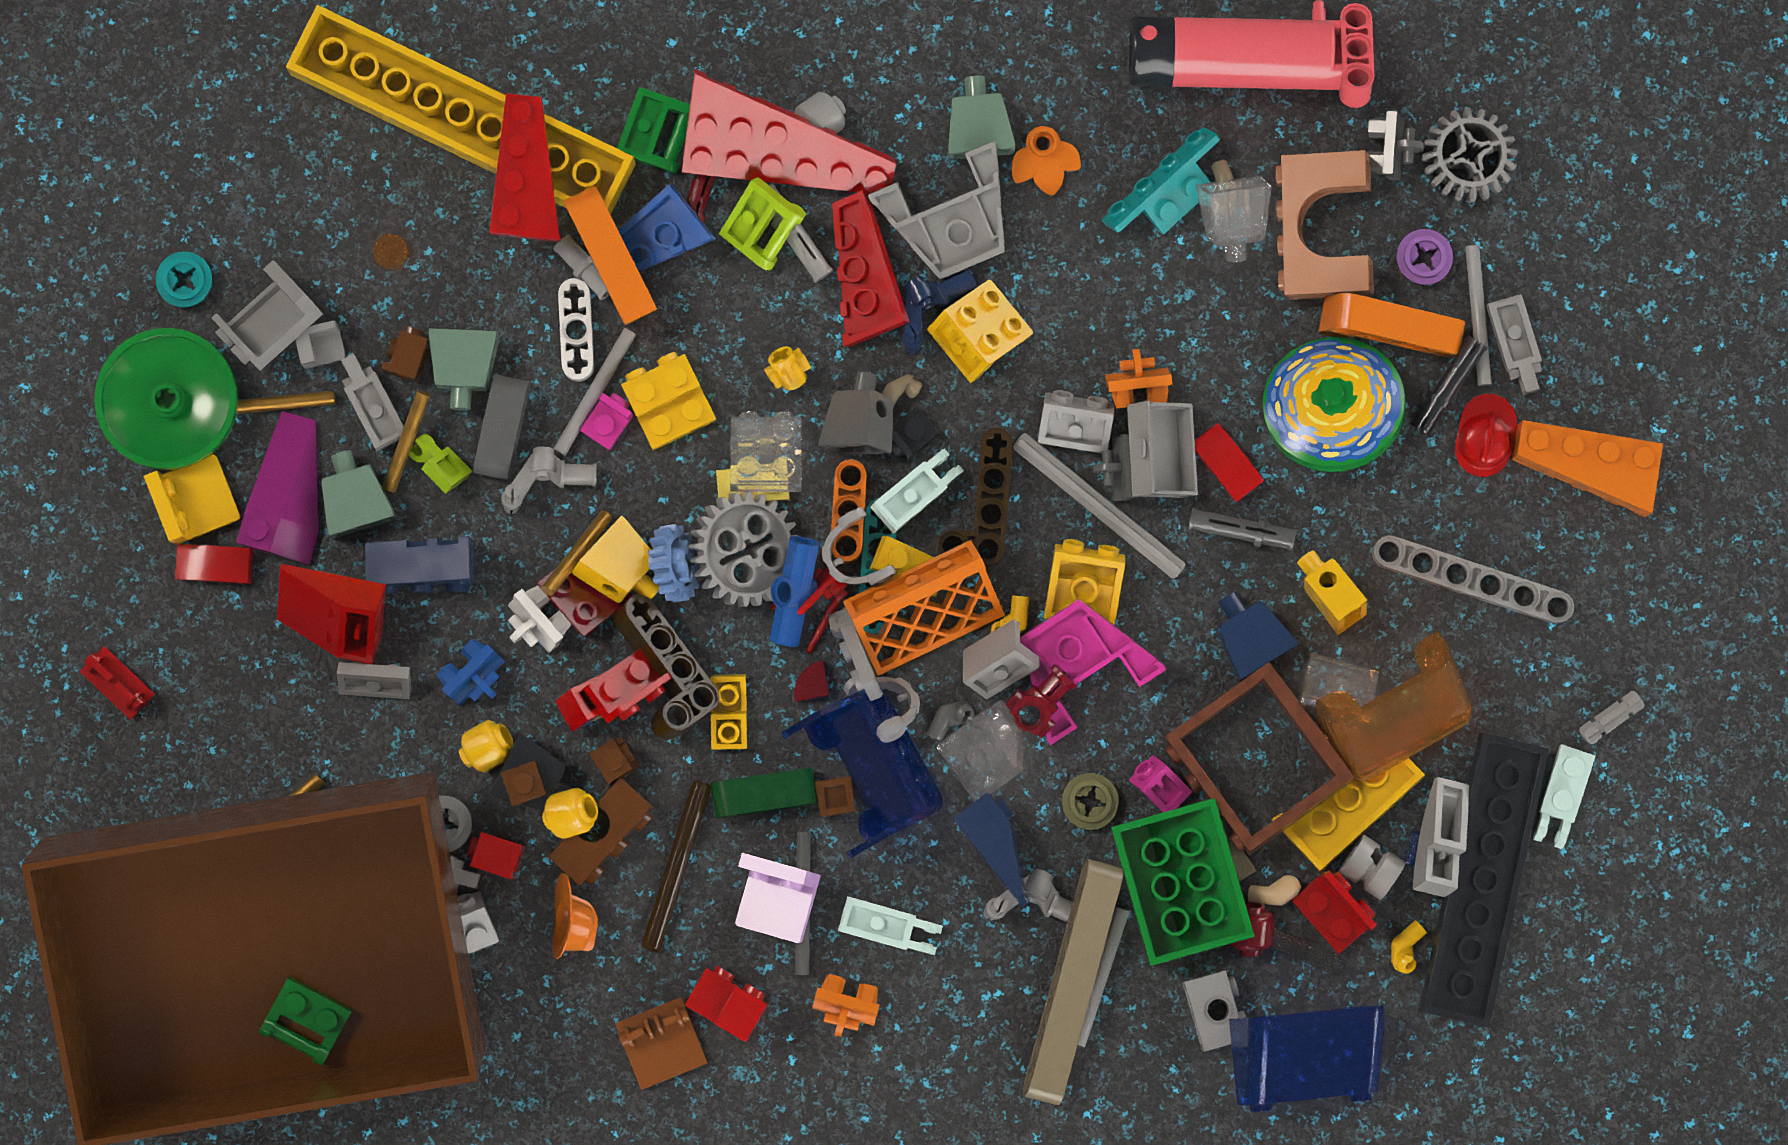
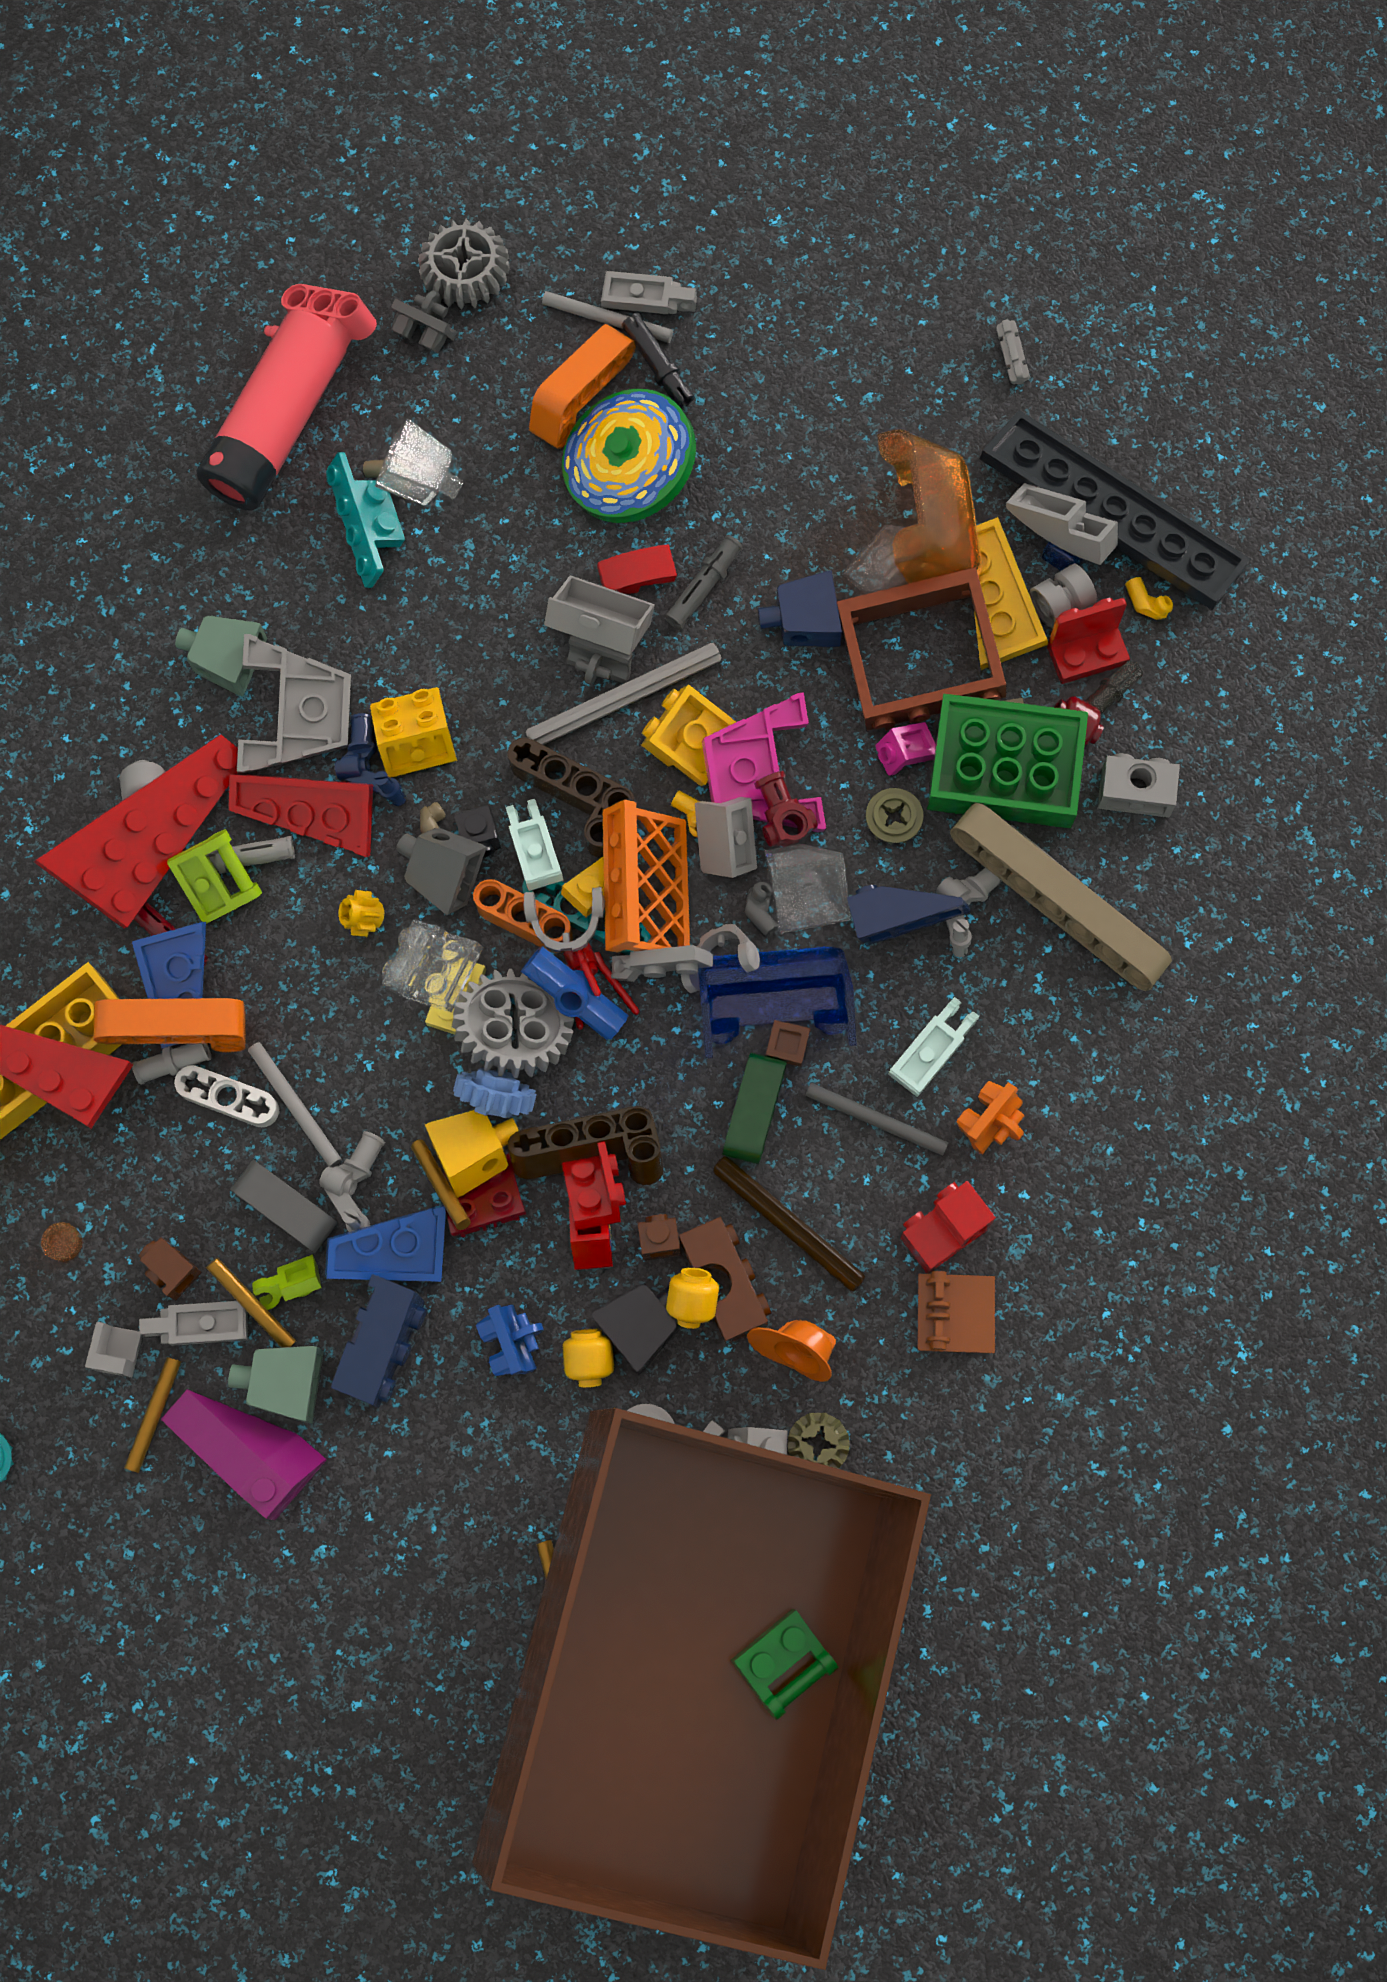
camera: 60 degrees left, 10 degrees down
(116, 682) = (349, 1713): red hinge -> none
(166, 399) = (88, 1529): green dish -> none
(193, 500) = (203, 1547): yellow bracket -> none
(214, 564) = (278, 1555): red slope -> none
(269, 320) = (63, 1385): light grey panel -> none
(333, 611) = (381, 1451): red slope -> none
(374, 680) = (471, 1441): light grey plate -> none
(462, 362) = (202, 1216): sand green torso -> none
(495, 855) = (700, 1395): red brick -> none
(502, 537) = (394, 1249): none -> blue wing
(513, 982) = (833, 1432): none -> olive gear
(523, 783) = (642, 1331): reddish brown plate -> none
(532, 623) = (489, 1256): white hips -> none
(607, 420) = (327, 1102): dark pink bracket -> none
(645, 127) = (69, 948): green plate -> none
(667, 400) = (336, 1038): yellow plate -> none
(730, 714) = (670, 1111): yellow slope -> none
(776, 898) = (862, 1138): bracket -> none
(811, 683) = (669, 1020): dark red tile -> none
(1046, 165) = (292, 611): orange plate -> none
(1076, 421) = (538, 681): light grey bracket -> none
(1154, 380) = (525, 628): orange hips -> none
(1277, 893) = (1051, 685): tan arm -> none
(1303, 182) = (416, 397): nougat arch -> none
(1307, 1055) = (1217, 715): clear blue windscreen -> none
(1339, 604) = (797, 524): yellow torso -> none
(1427, 241) = (520, 335): medium lavender gear -> none
(1471, 585) = (835, 411): light grey beam -> none
(1485, 435) = (715, 354): red piece -> none
(1564, 792) = (1064, 417): light aqua hinge -> none
(1600, 463) = (783, 269): orange wedge -> none

